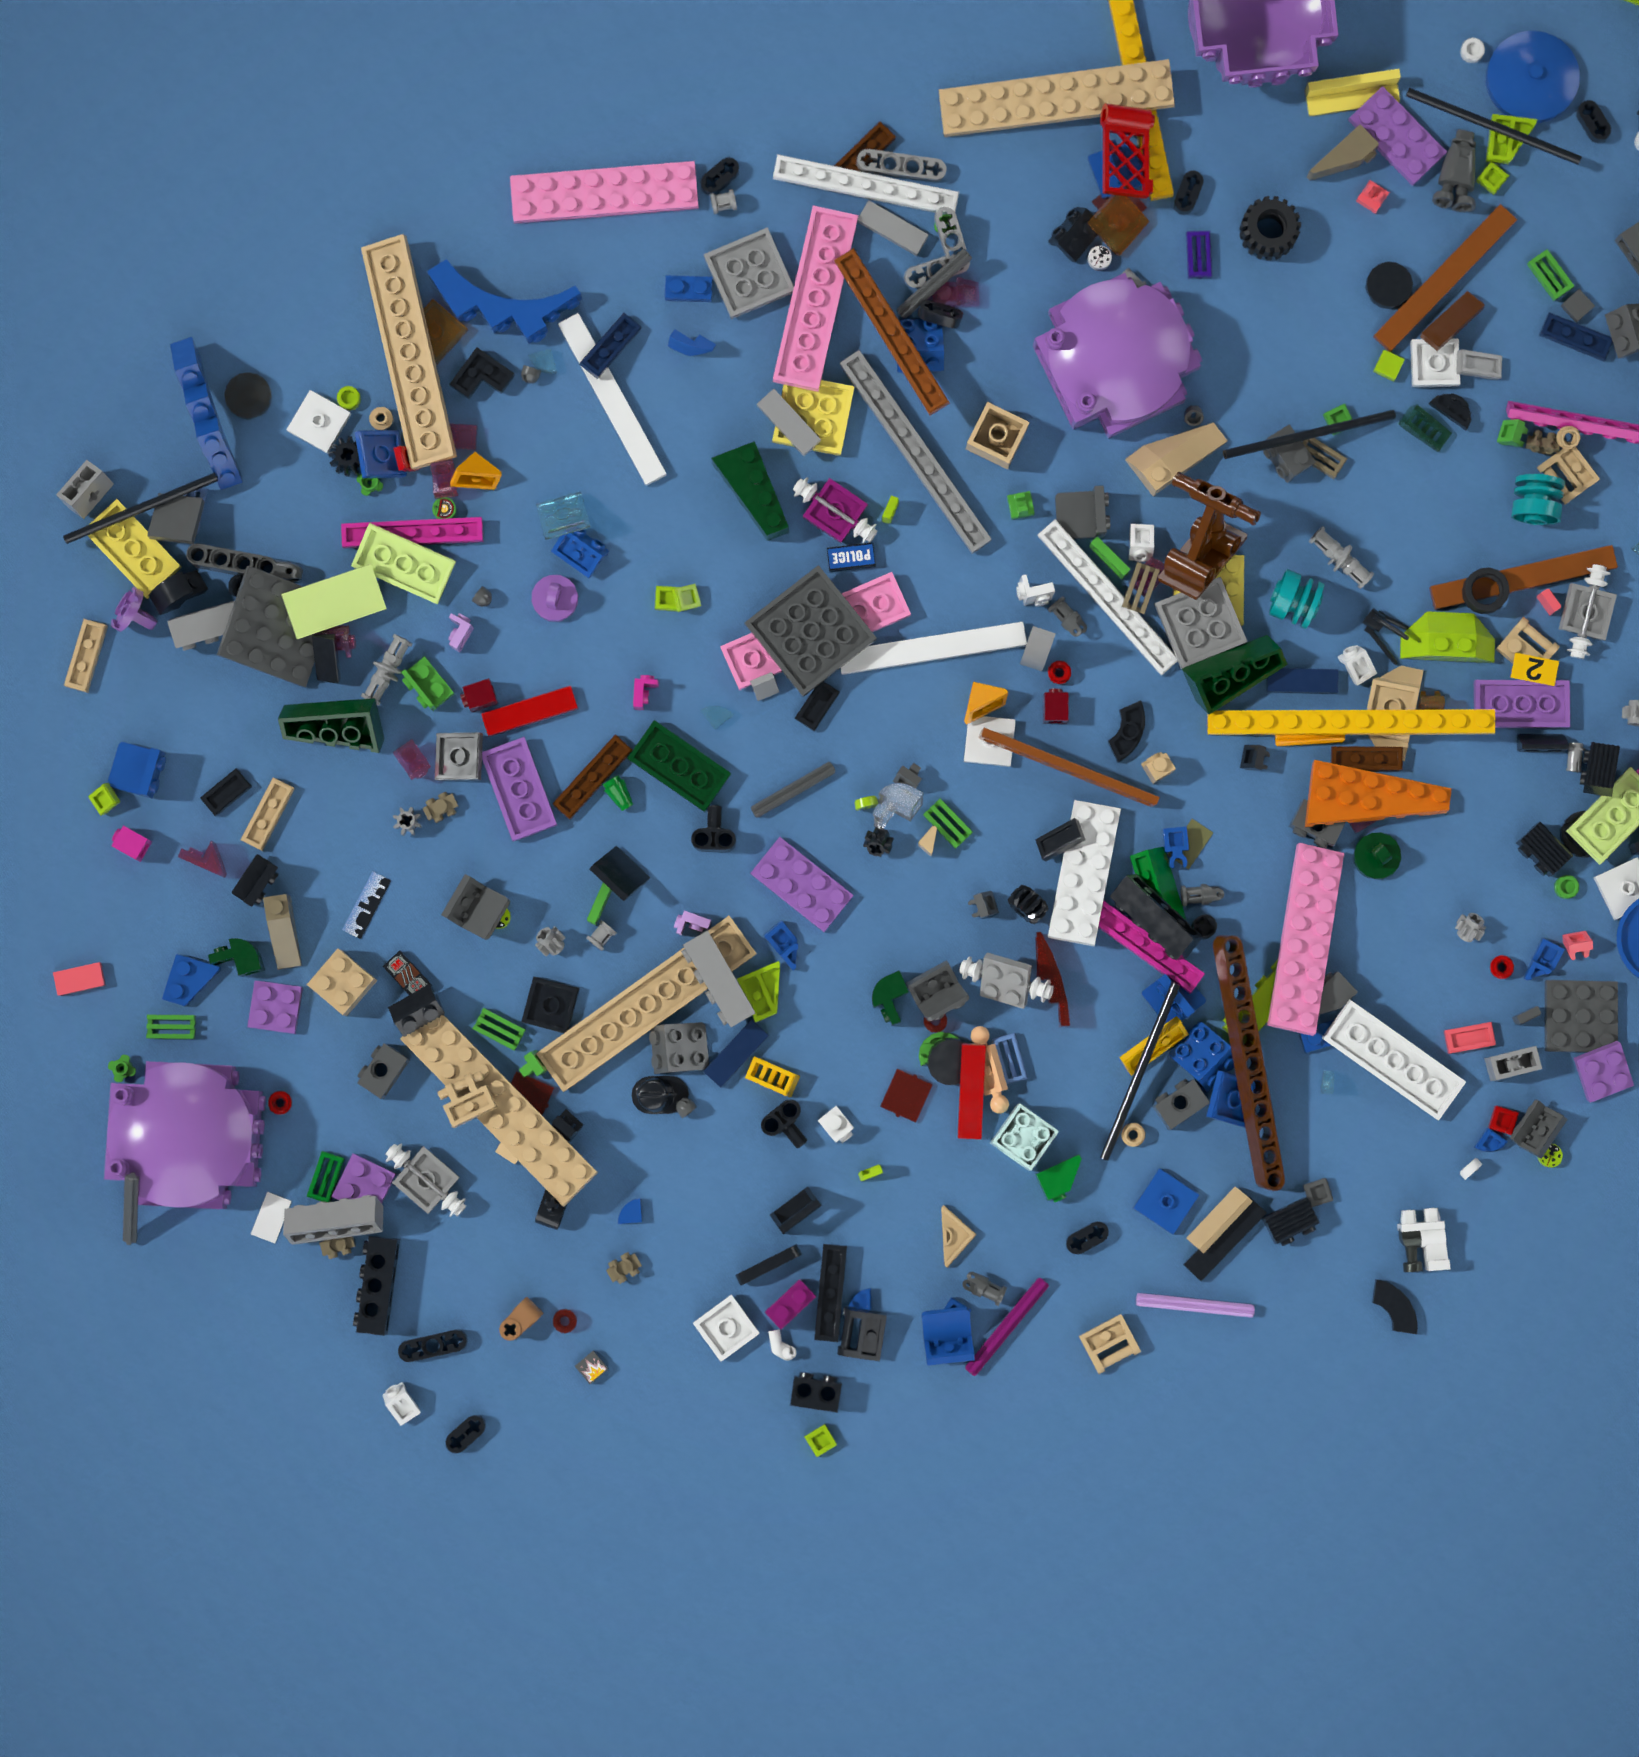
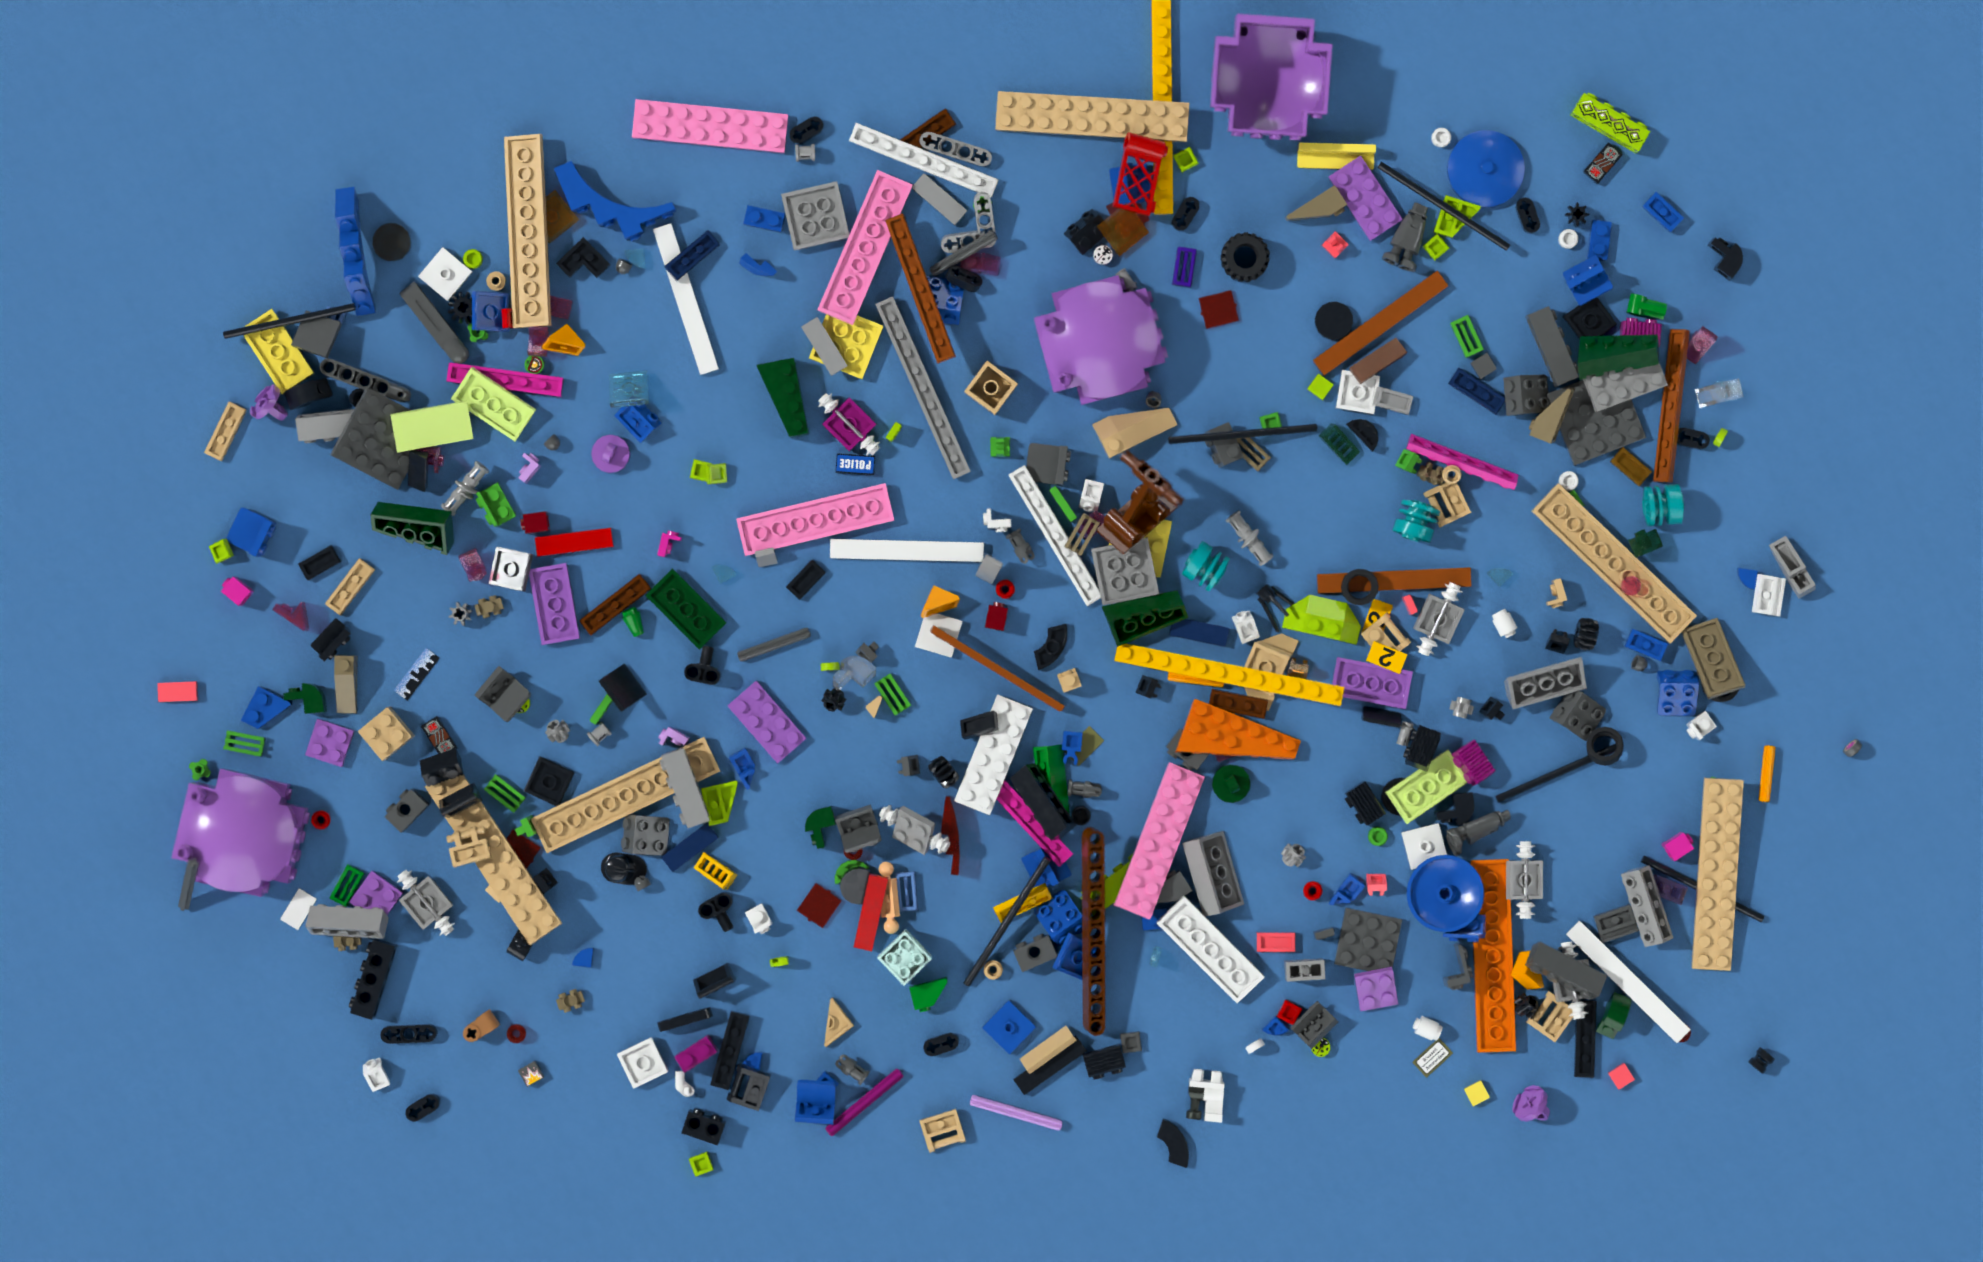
camera: 10 degrees right, 5 degrees up
(85, 489) = (247, 297): light grey brick -> none
(316, 481) = (435, 323): none -> dark grey piece
(446, 1046) = (459, 801): none -> black tile
(810, 631) = (810, 520): dark grey plate -> none
(1175, 130) = (1185, 159): none -> lime tile
(1249, 297) = (1218, 309): none -> clear red piece
(1377, 968) = (1213, 873): none -> light grey slope
(1509, 618) = (1376, 611): none -> yellow sticker

